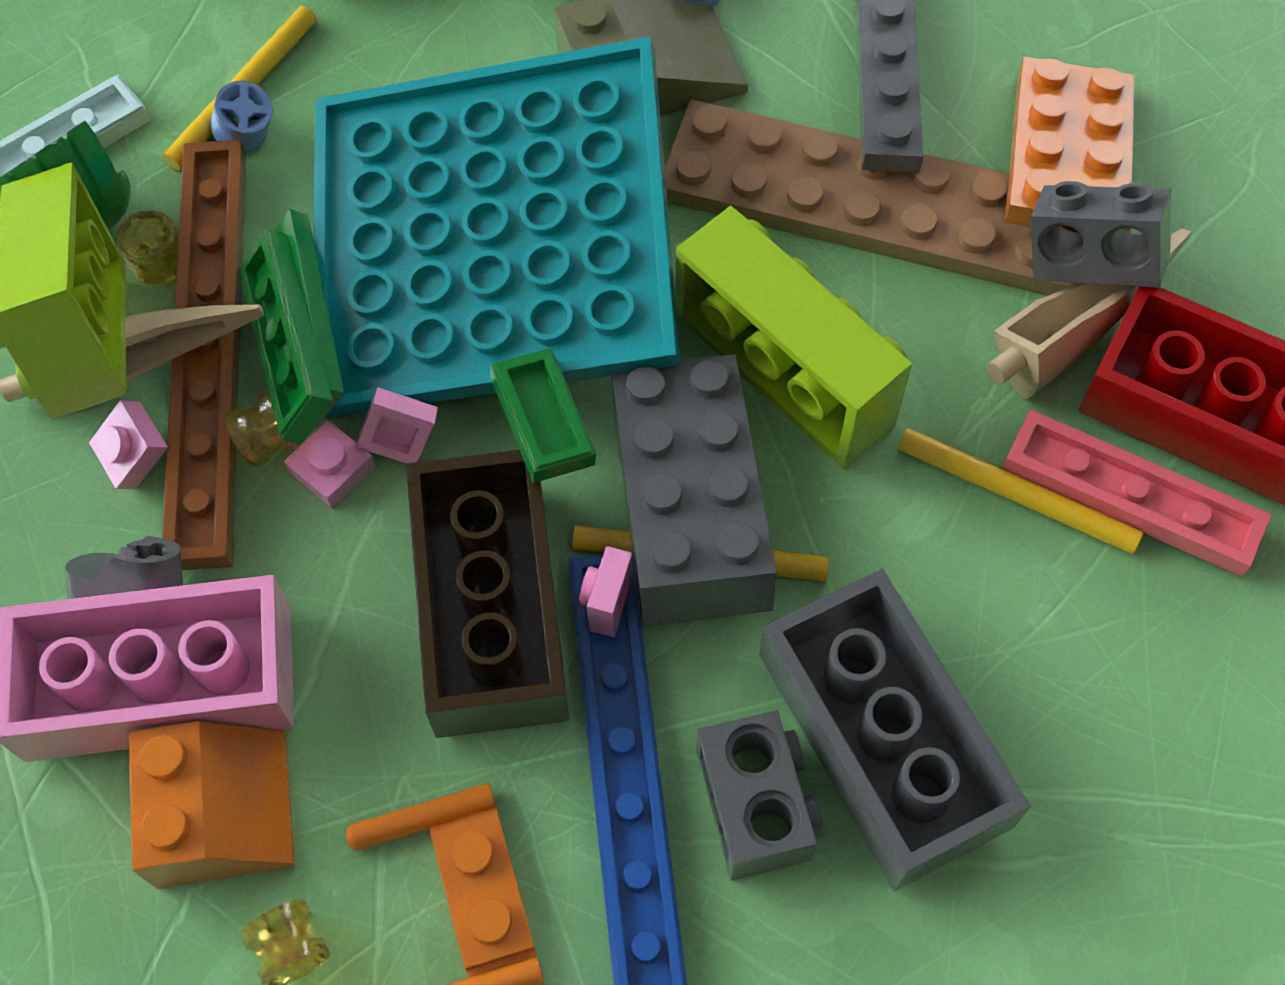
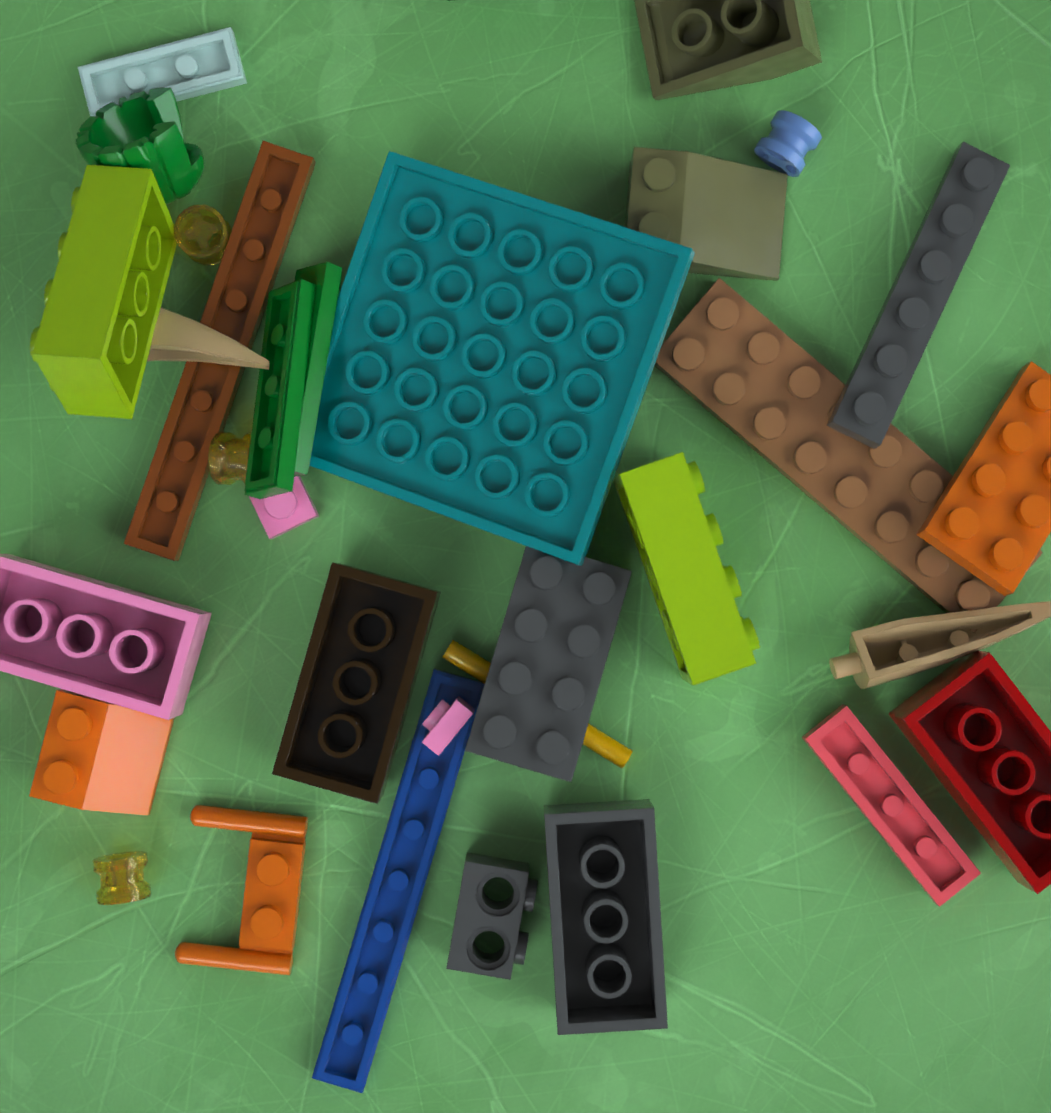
camera: 20 degrees right, 25 degrees up
(128, 445) = (133, 434): bright pink plate -> none
(138, 567) = (103, 552): dark grey piece -> none
(247, 104) = (331, 134): medium blue wheel -> none
(254, 72) = (336, 84): yellow bar -> none
(396, 426) = (343, 504): bright pink plate -> none
(542, 415) = (452, 569): green tile -> none
(1020, 491) = (805, 760): yellow bar -> none
(1101, 247) = (976, 603): dark grey brick -> none

